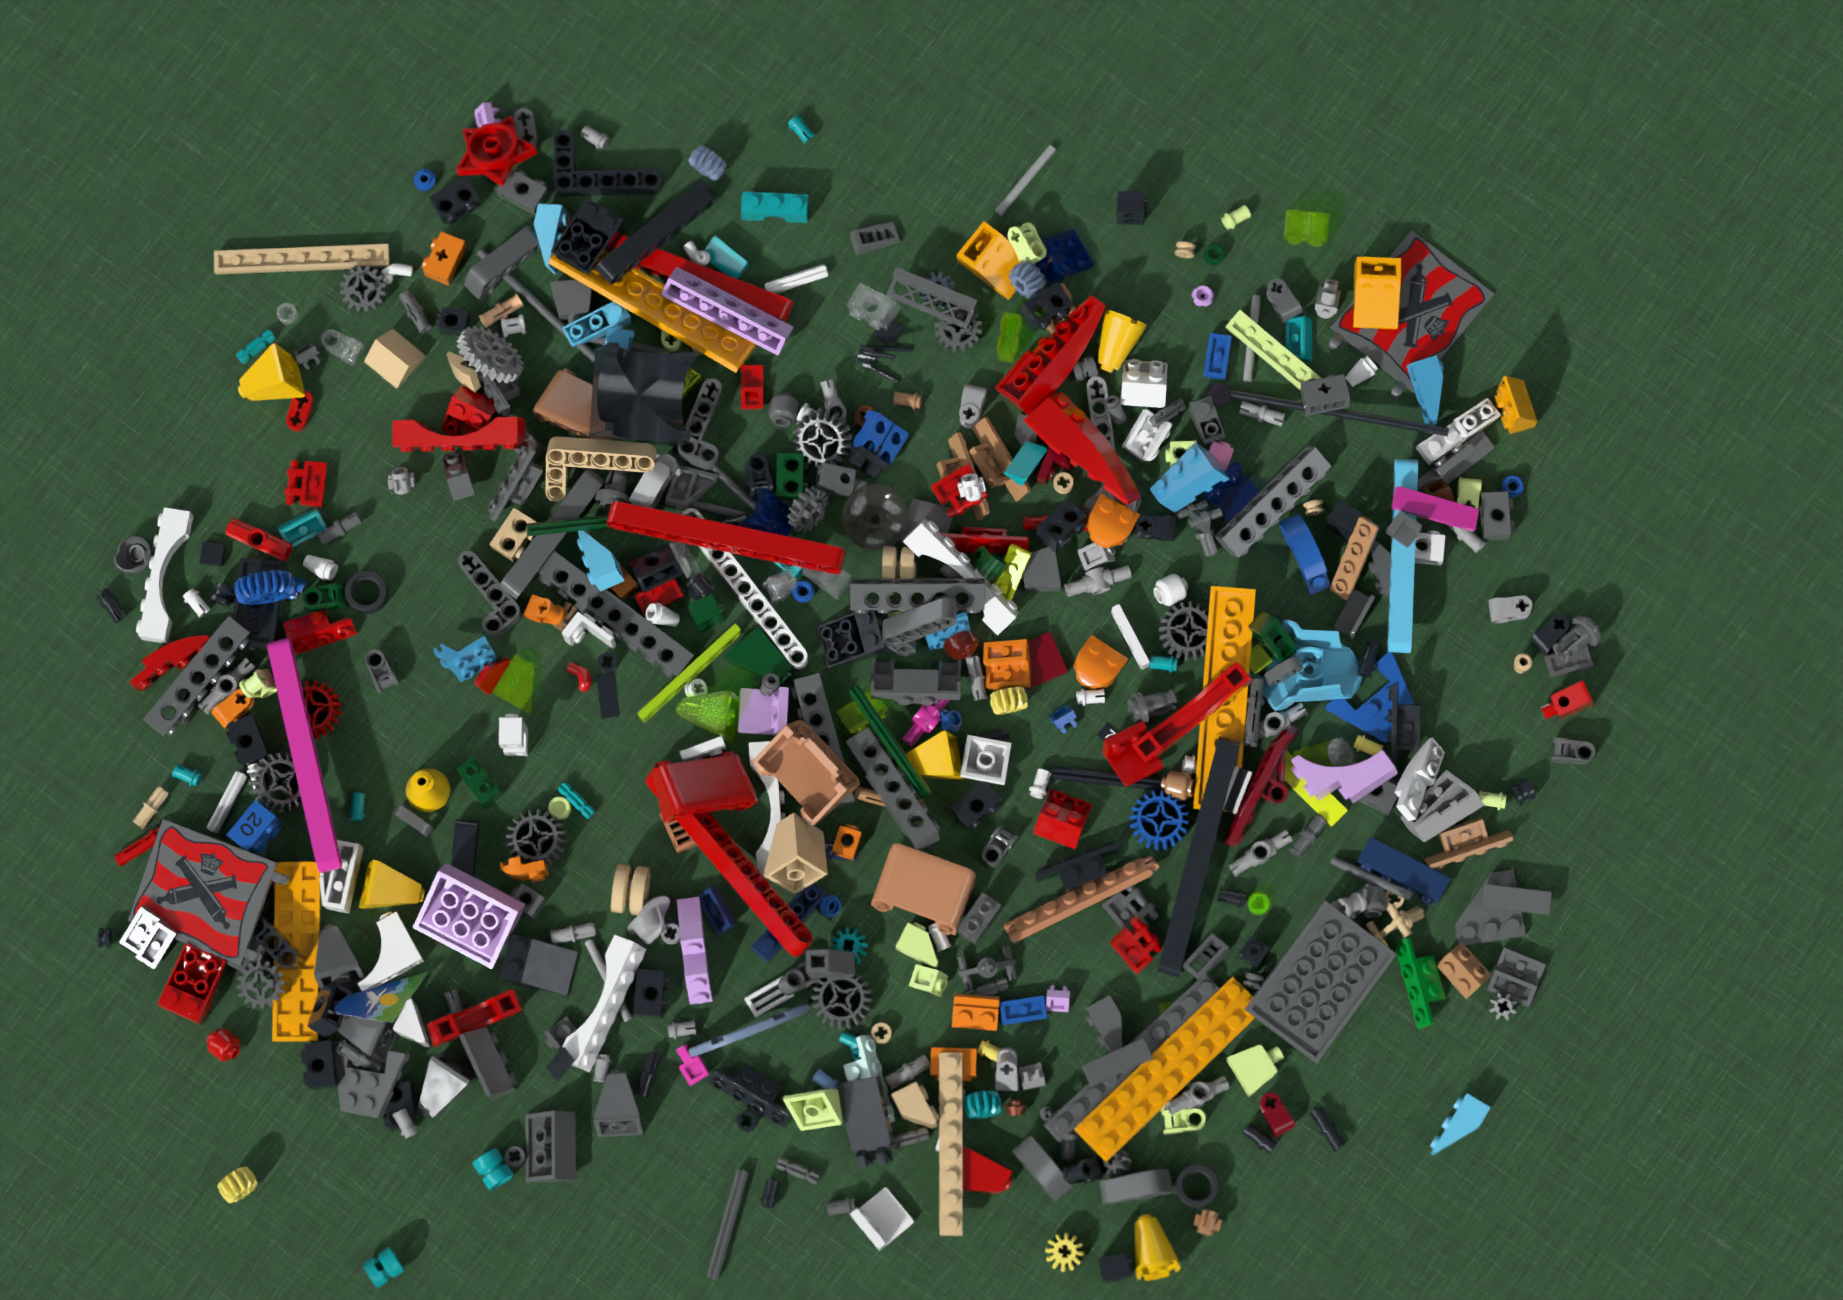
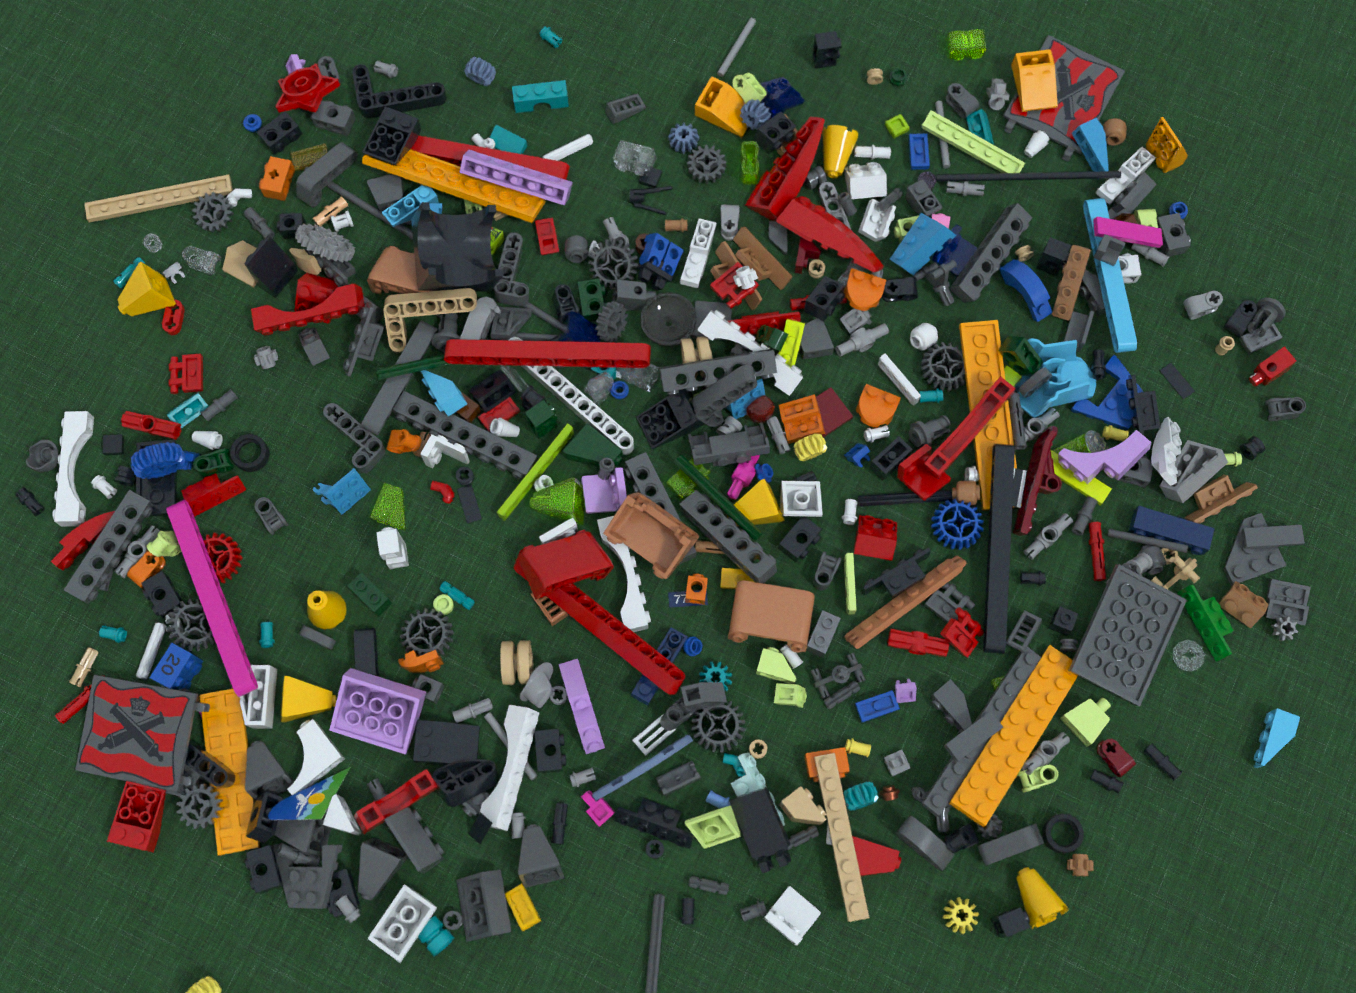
camera: 15 degrees left, 5 degrees down
(104, 937) = (55, 789): black bush -> none
(148, 936) = (93, 781): slope -> none
(223, 1044) = (174, 866): red head -> none
(423, 374) = (270, 267): none -> black slope
(461, 1148) = (402, 923): none -> white slope
(487, 235) = (308, 156): none -> clear yellow tile
(491, 675) = (366, 503): red tile -> none
(509, 533) = (364, 384): tan brick -> none
(549, 226) = (357, 137): medium azure slope -> none
(552, 1008) = (464, 780): none -> black beam
(592, 1156) = (522, 907): none -> yellow plate
(656, 232) = (447, 128): black beam -> none
(716, 910) = (594, 668): dark blue plate -> none
(786, 1049) = (678, 778): none -> dark grey hinge
(796, 855) = (655, 607): tan slope -> none
(890, 835) = (731, 577): none -> yellow plate
(907, 1072) = (788, 779): light grey pin -> none
(921, 660) = (730, 426): none -> light grey wheel
(926, 441) = (698, 253): none -> white slope
(935, 290) = (669, 131): dark grey fence -> none
(975, 1011) = (836, 715): orange plate -> none
(1006, 1074) = (875, 762): light grey piece -> none
(1021, 866) = (849, 583): none -> yellowish green tile
(1025, 462) = (783, 255): teal slope -> none
(1084, 947) = (918, 643): none -> red piece
(1098, 729) = (890, 458): none -> black brick
(1161, 347) = (873, 152): none -> white axle
(1196, 294) = (896, 104): lavender plate -> none
(1199, 317) = (897, 126): none -> lime tile
(1235, 217) = (905, 49): yellowish green pin -> none
(1258, 903) = (1055, 579): clear neon green tile -> none
(1313, 878) = (1097, 551): none -> red pin
(1317, 402) = (1015, 162): dark grey brick -> none
(1380, 1023) = (1184, 662): none -> clear gear
(1458, 694) = (1177, 380): none -> black sticker
(1459, 373) = (1115, 131): none -> medium nougat head

